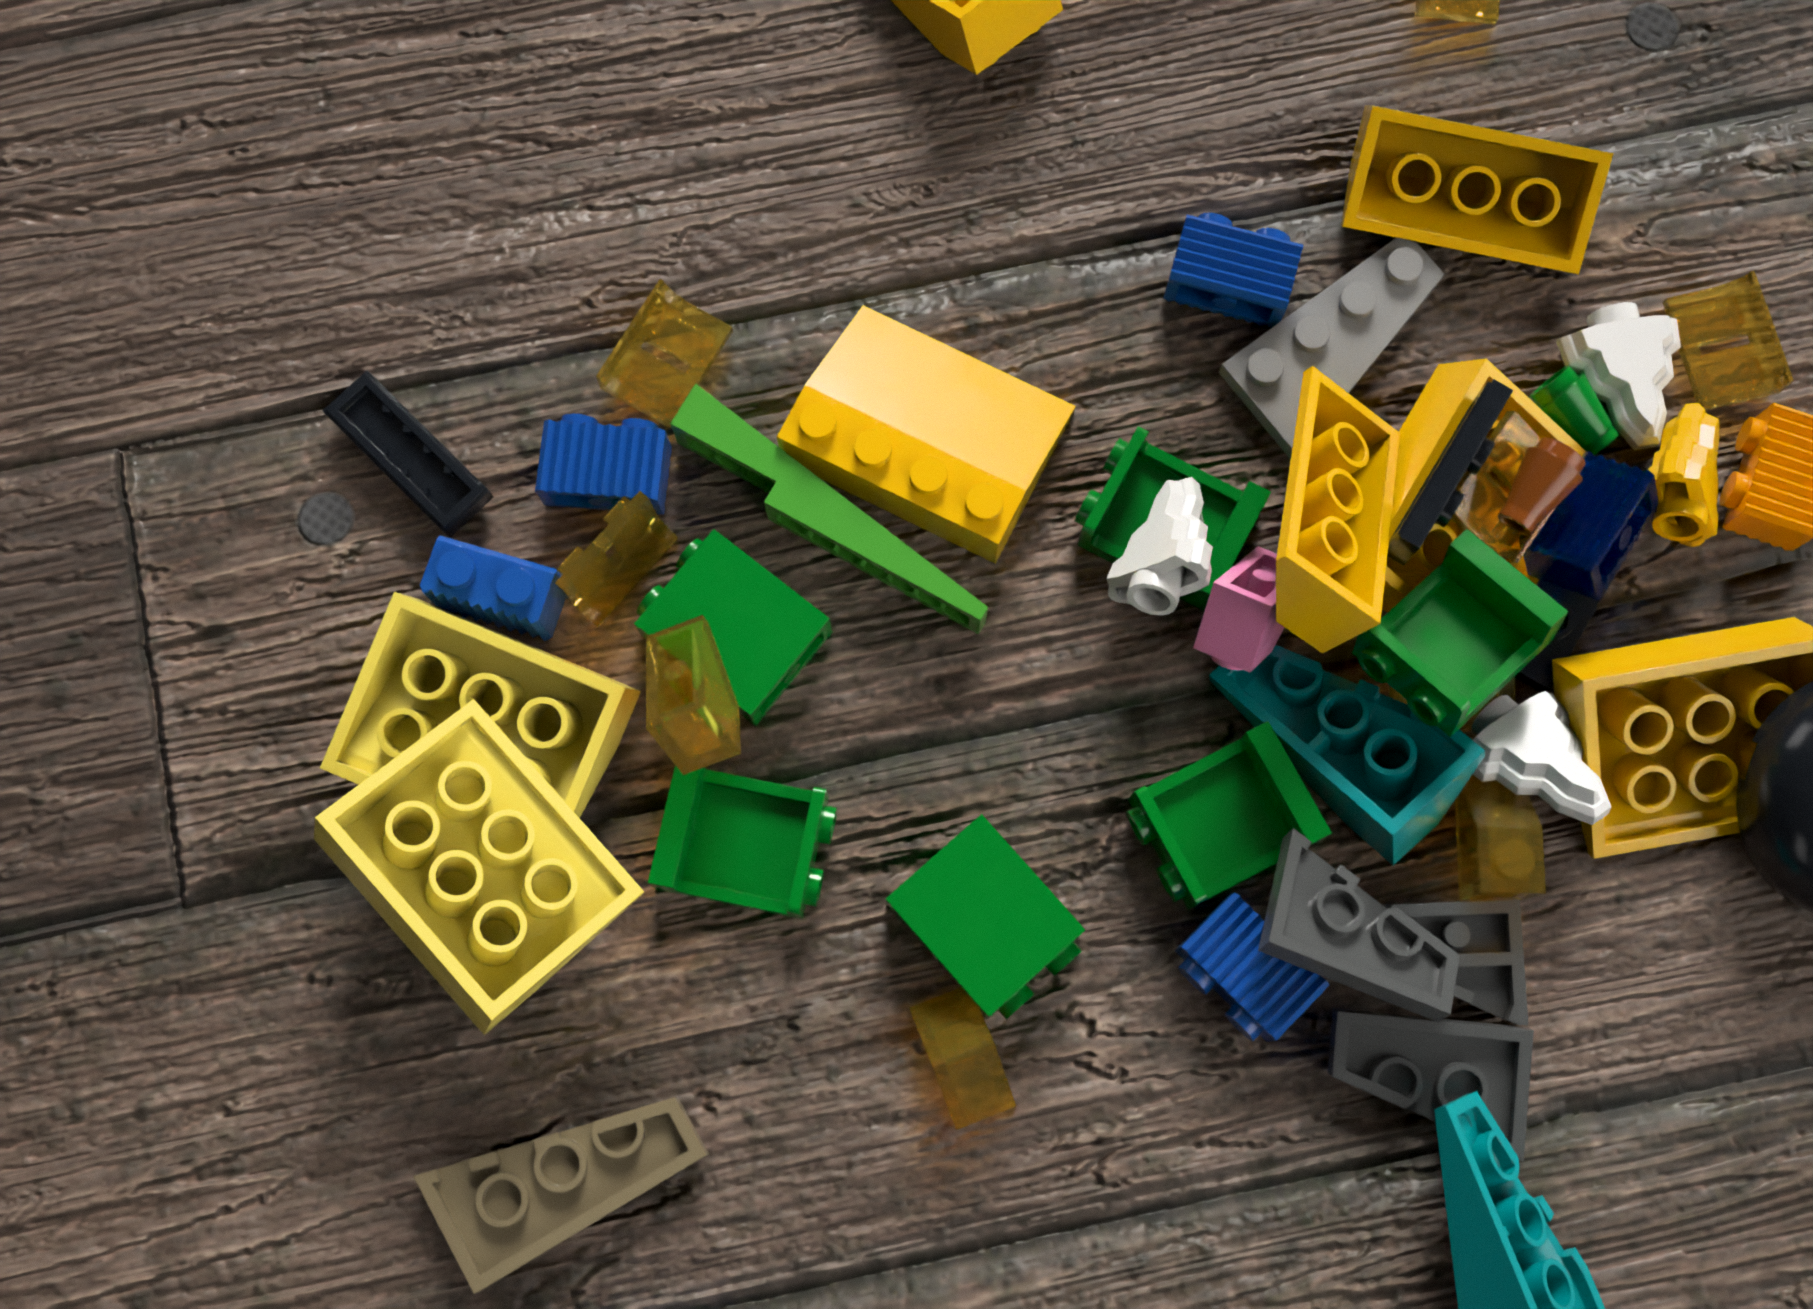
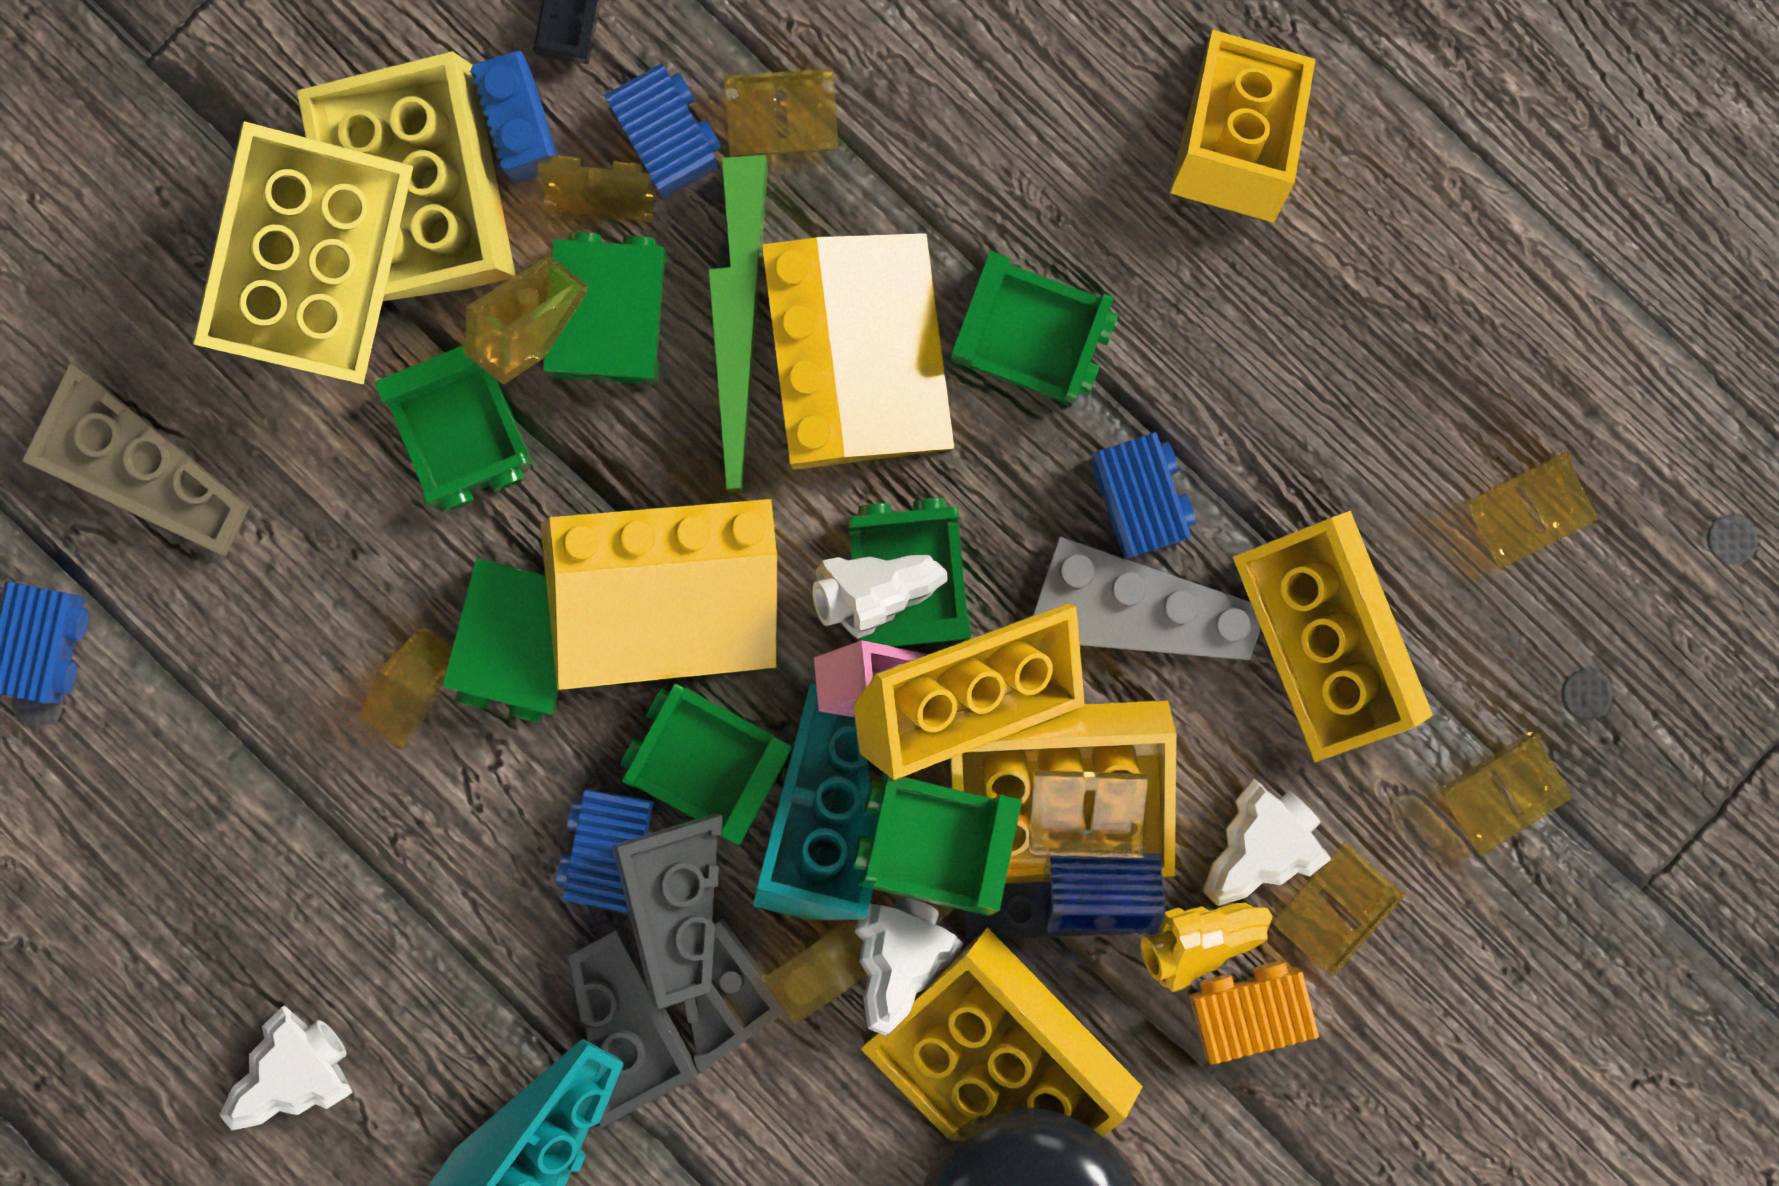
camera: 50 degrees right, 10 degrees up
(1019, 267) = (1033, 331): none -> green panel
(1036, 747) = (661, 592): none -> yellow slope
(1464, 452) = (1081, 761): black plate -> none
(1541, 484) = (1098, 834): dark orange cone -> none
(1576, 409) = (1202, 826): green cone -> none
(1704, 114) = (1528, 778): none -> clear yellow piece

